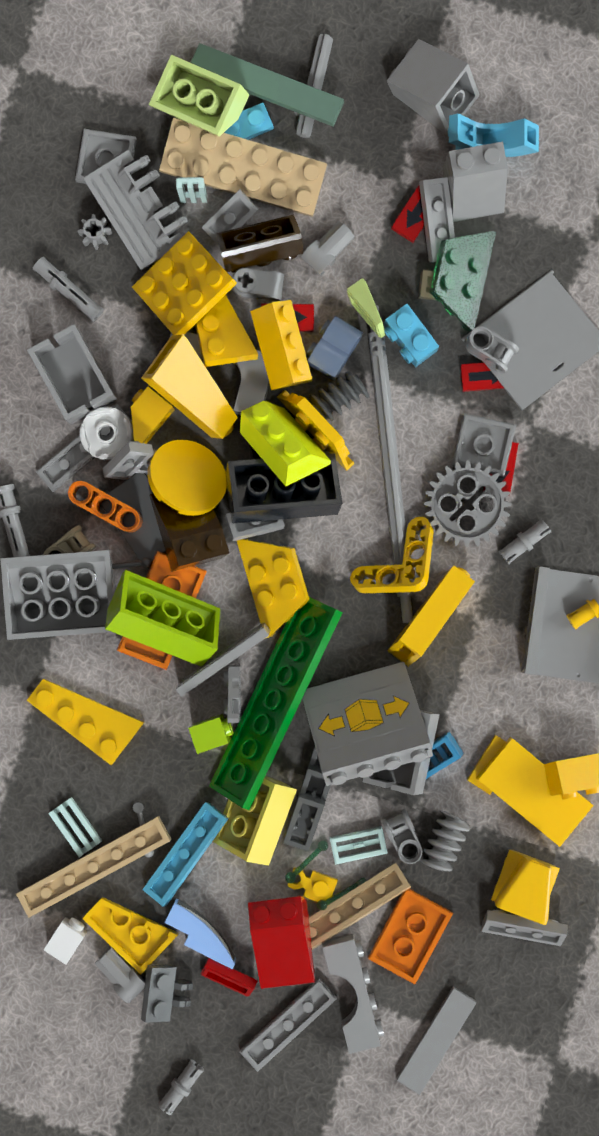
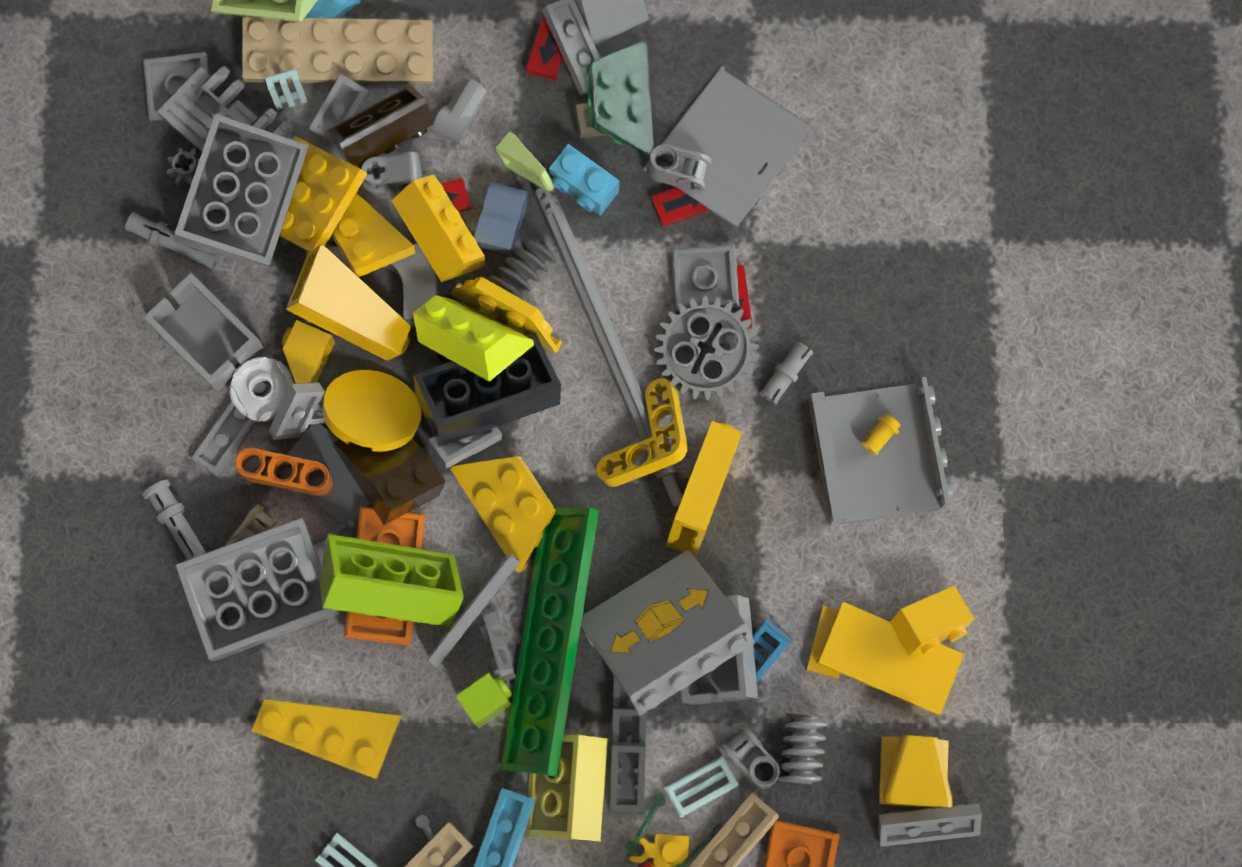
camera: 20 degrees left, 10 degrees down
(132, 267) = (240, 192): none -> light grey slope

